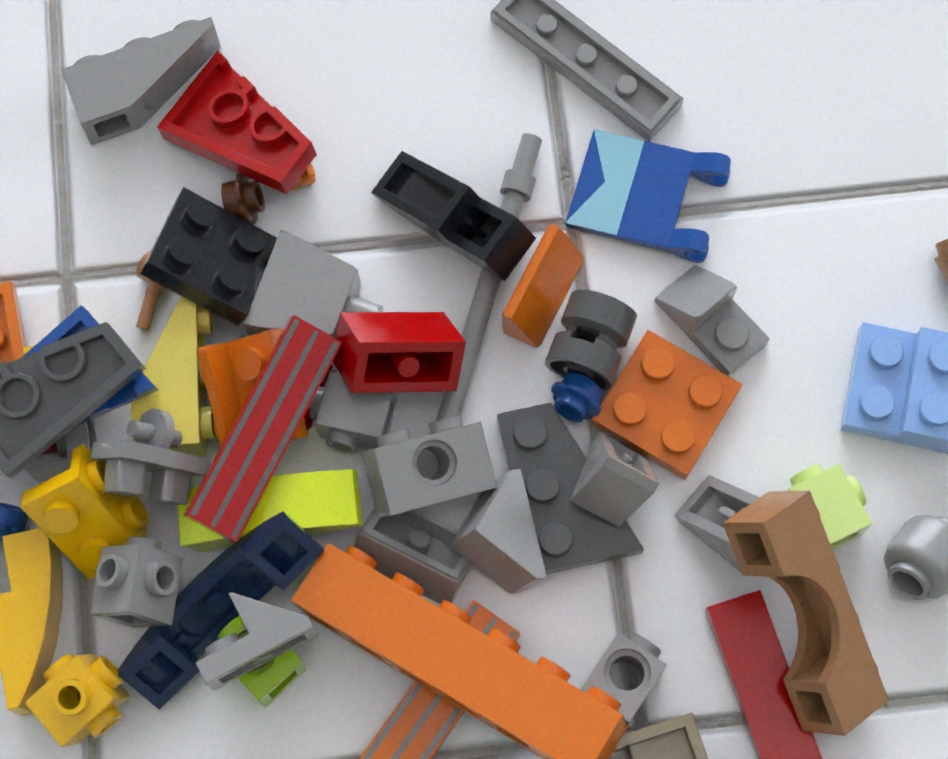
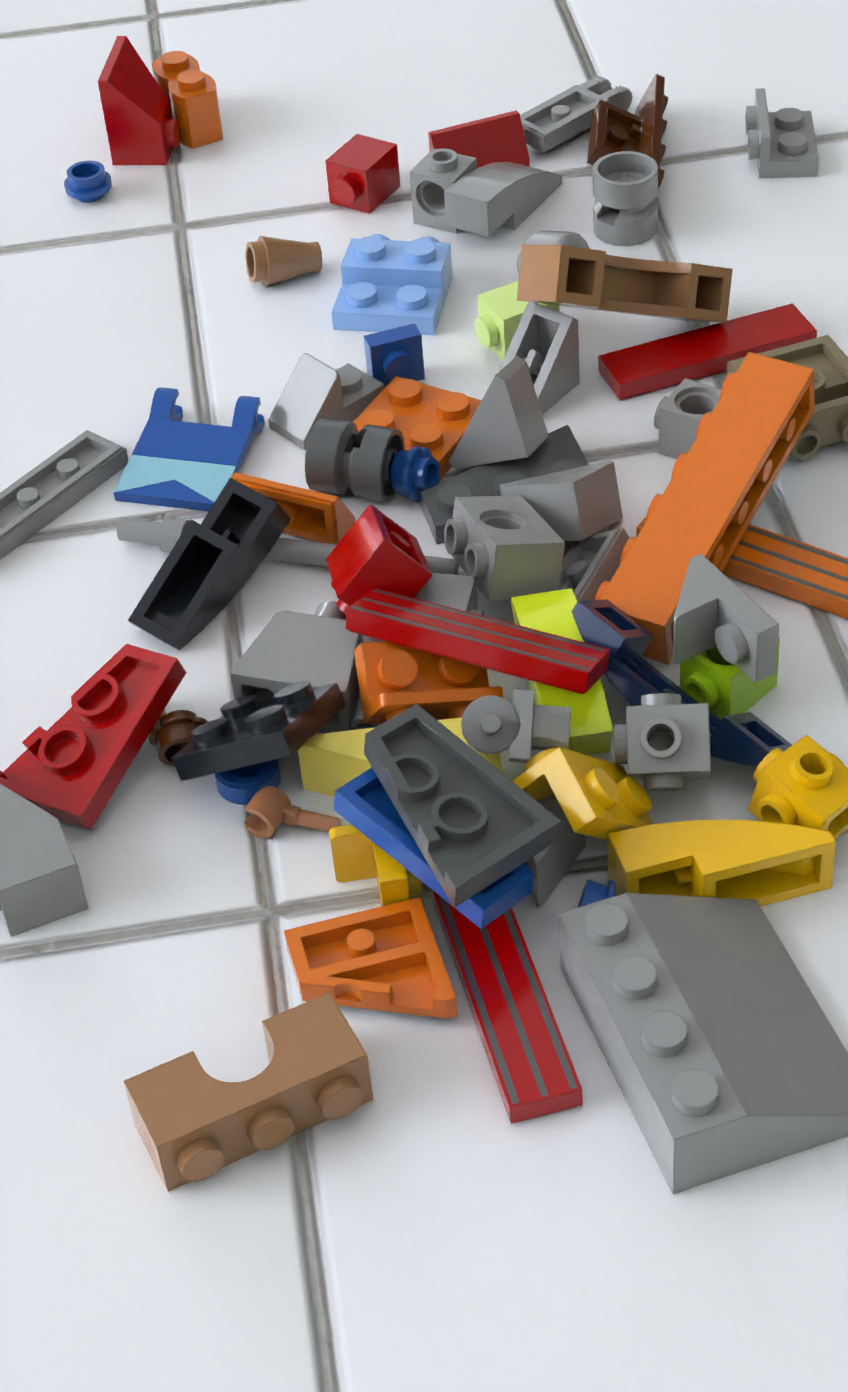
camera: 90 degrees left, 30 degrees down
(765, 382) = (395, 354): none -> blue plate

